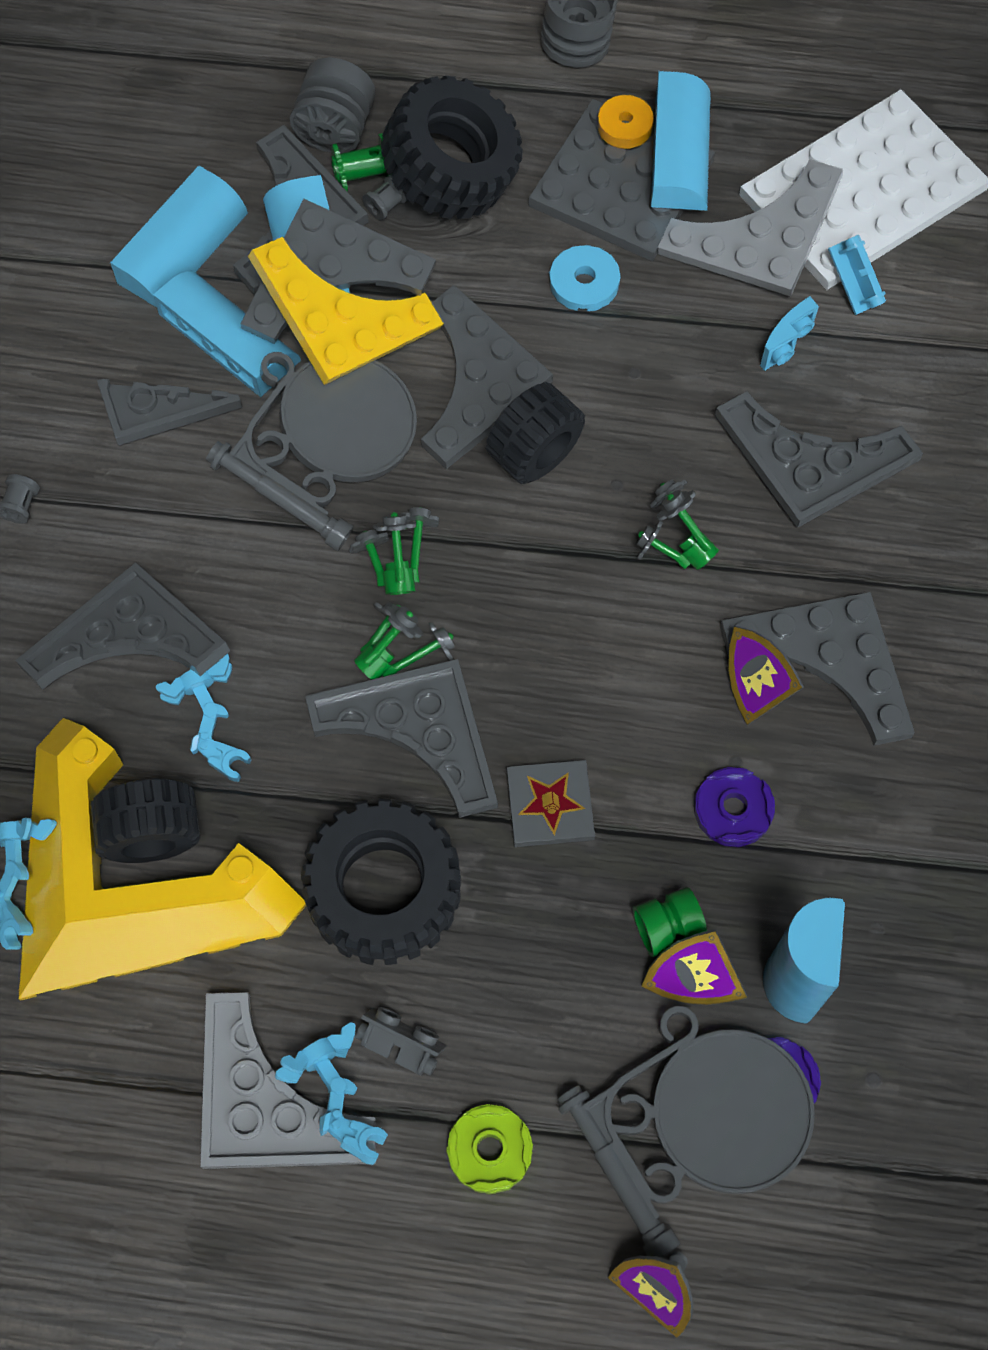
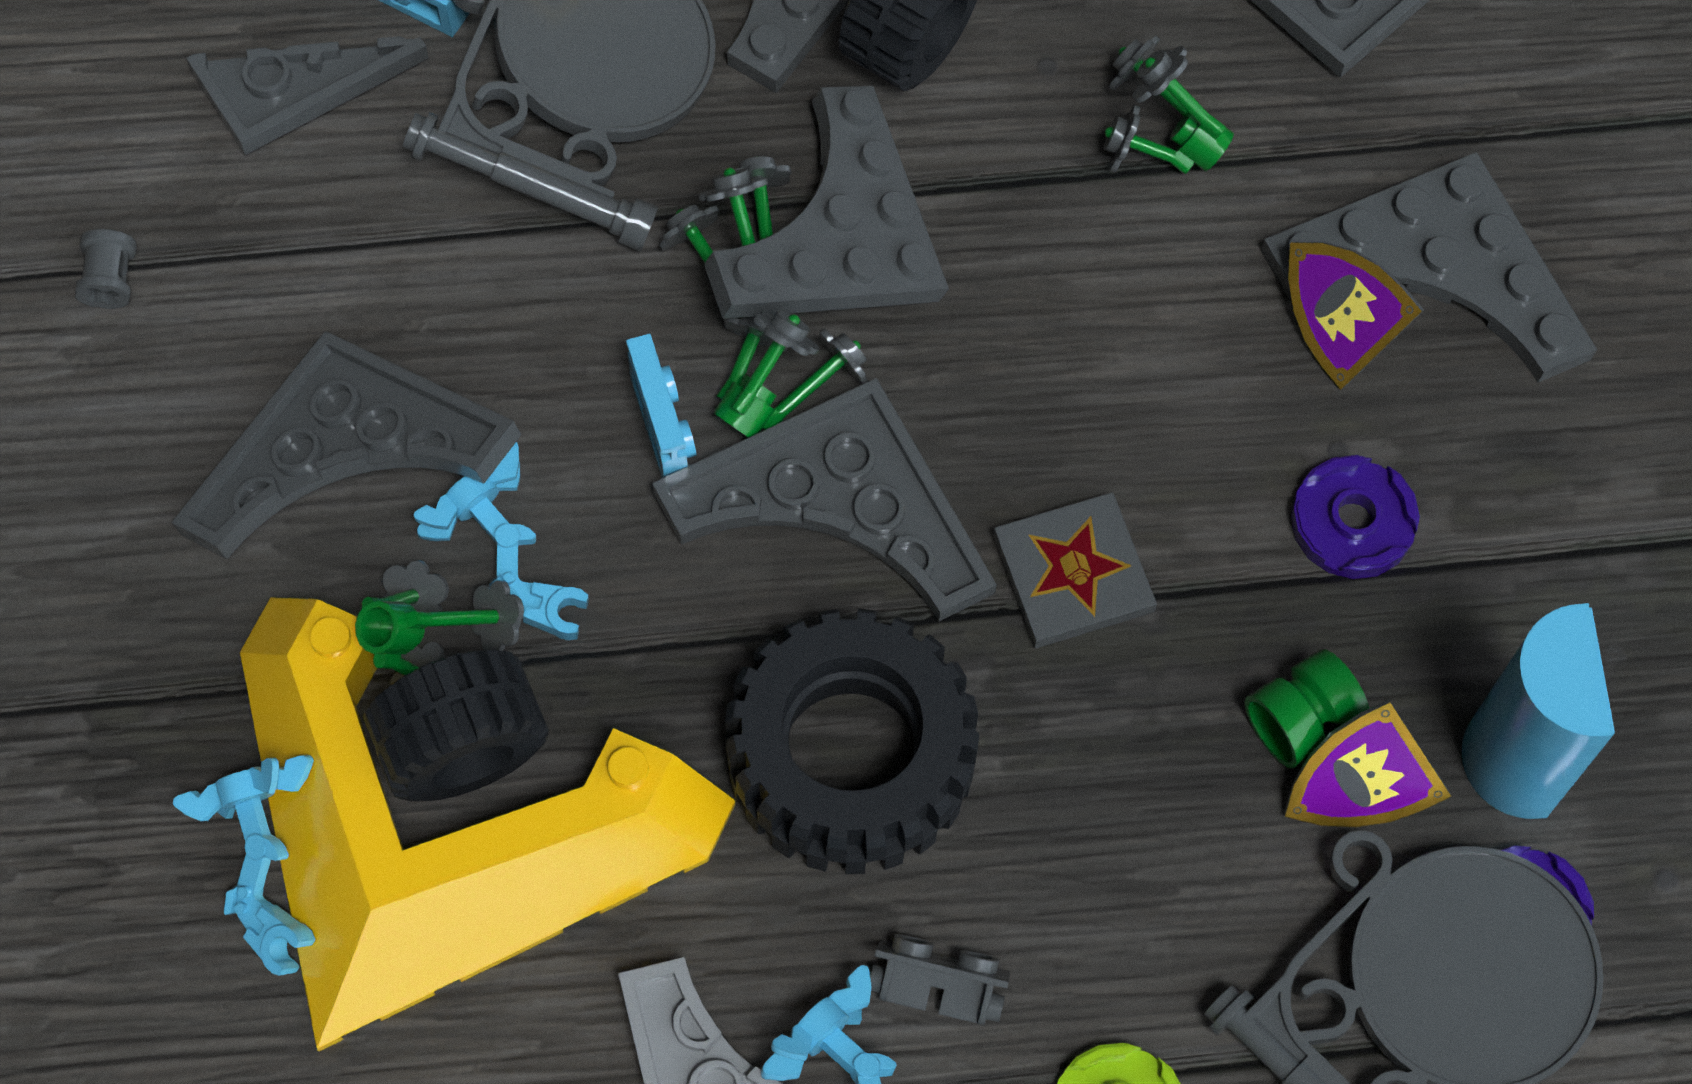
camera: 15 degrees left, 0 degrees up
(125, 750) = (398, 620): none -> plant
(321, 639) = (655, 394): none -> medium azure plate
(464, 573) = (855, 239): none -> dark grey plate

